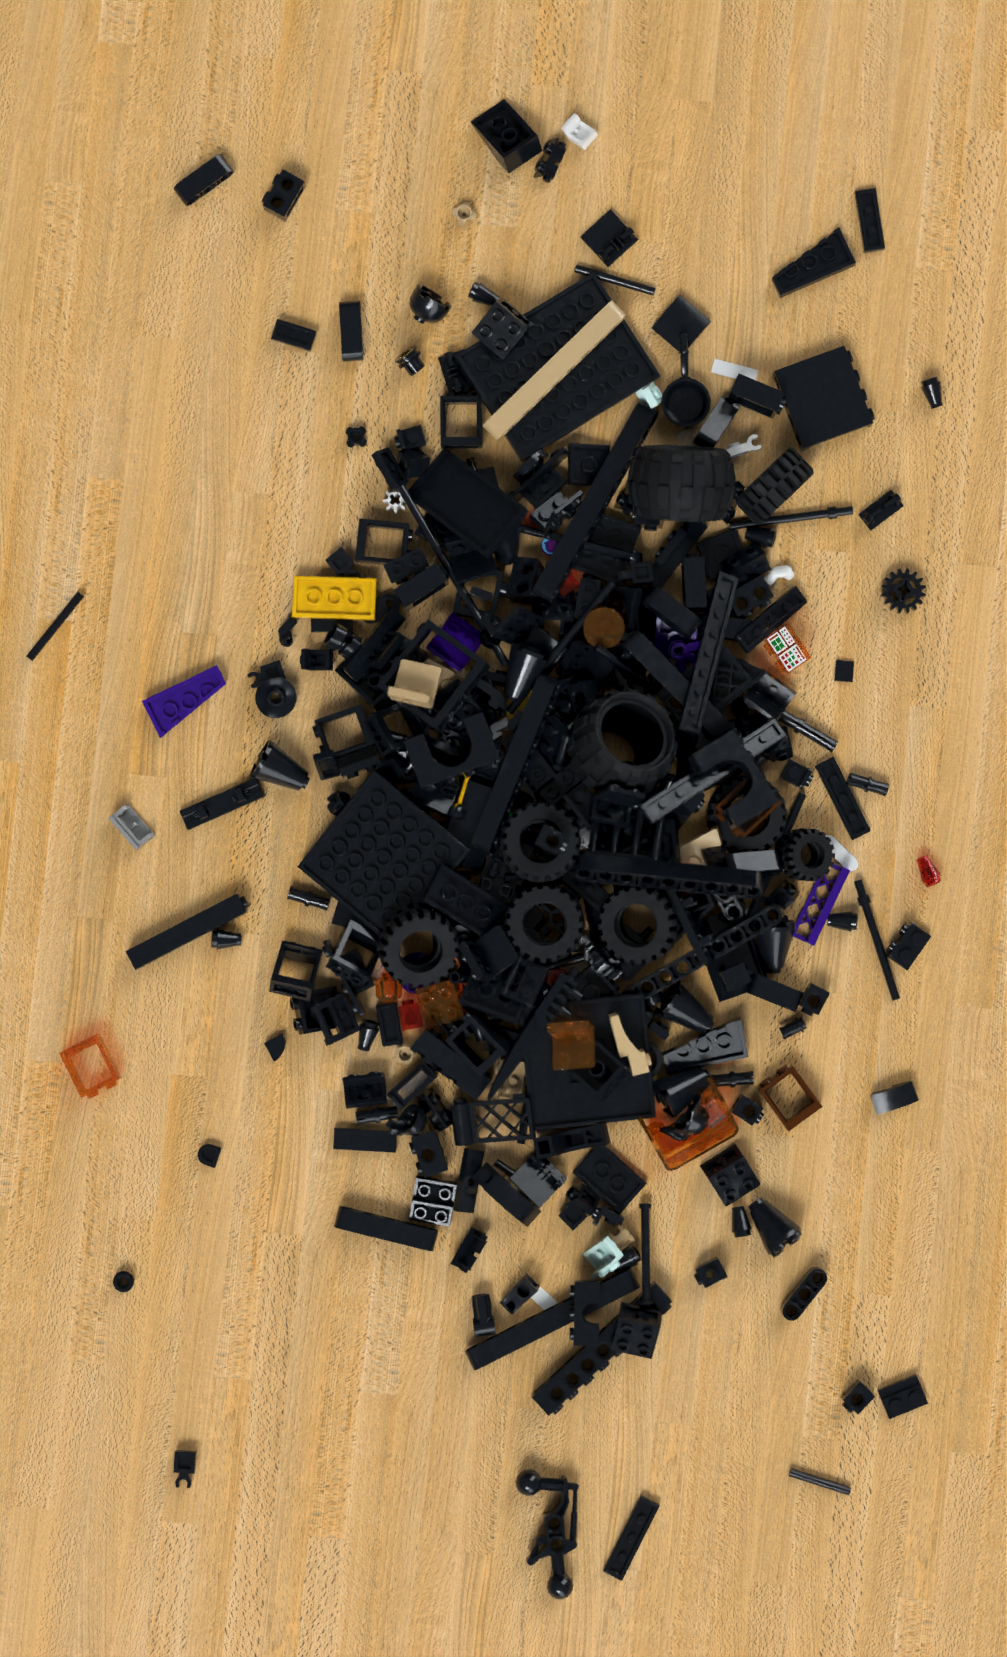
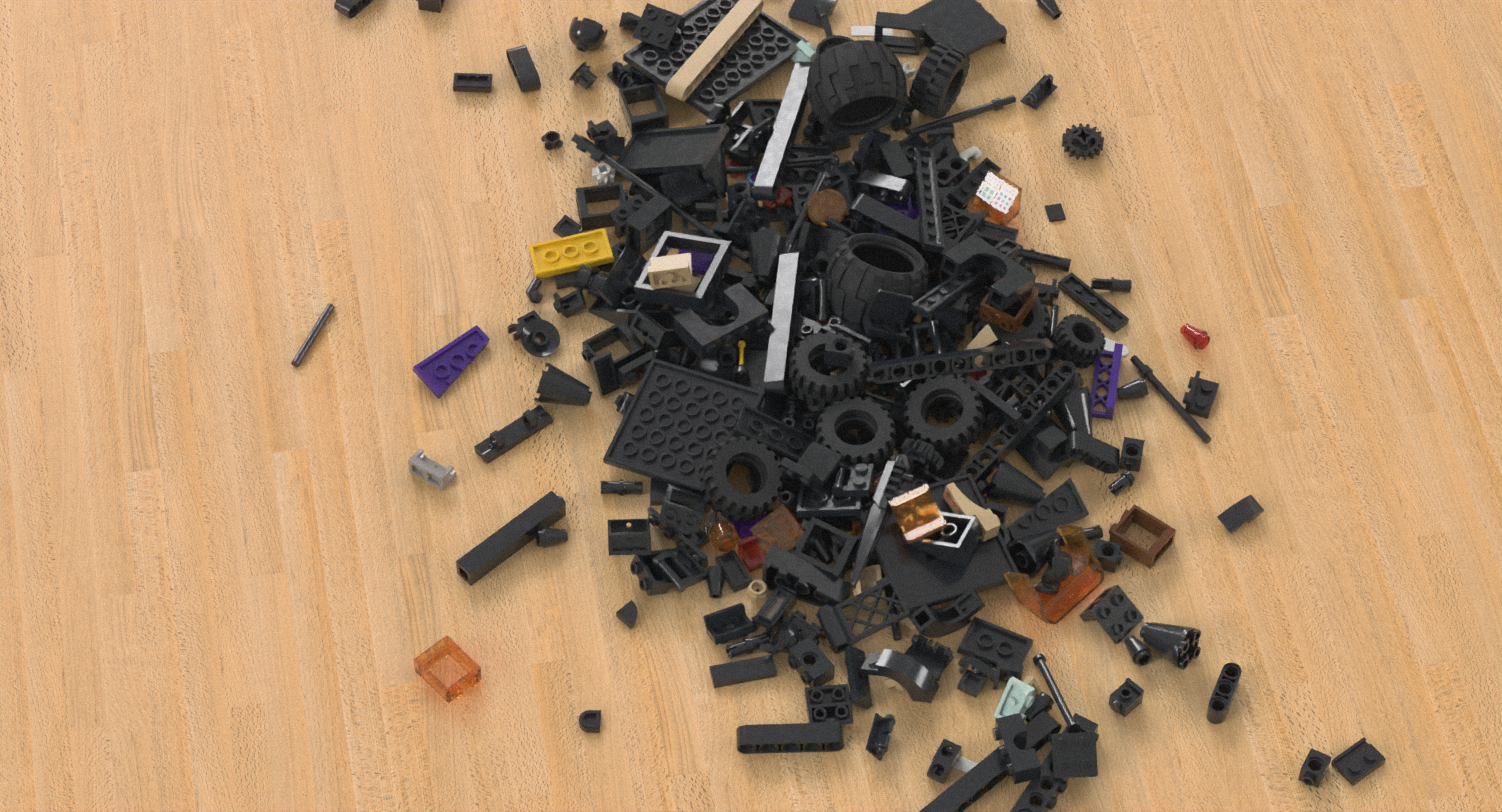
camera: 20 degrees left, 35 degrees down
(483, 1320) = (916, 794): black piece -> none

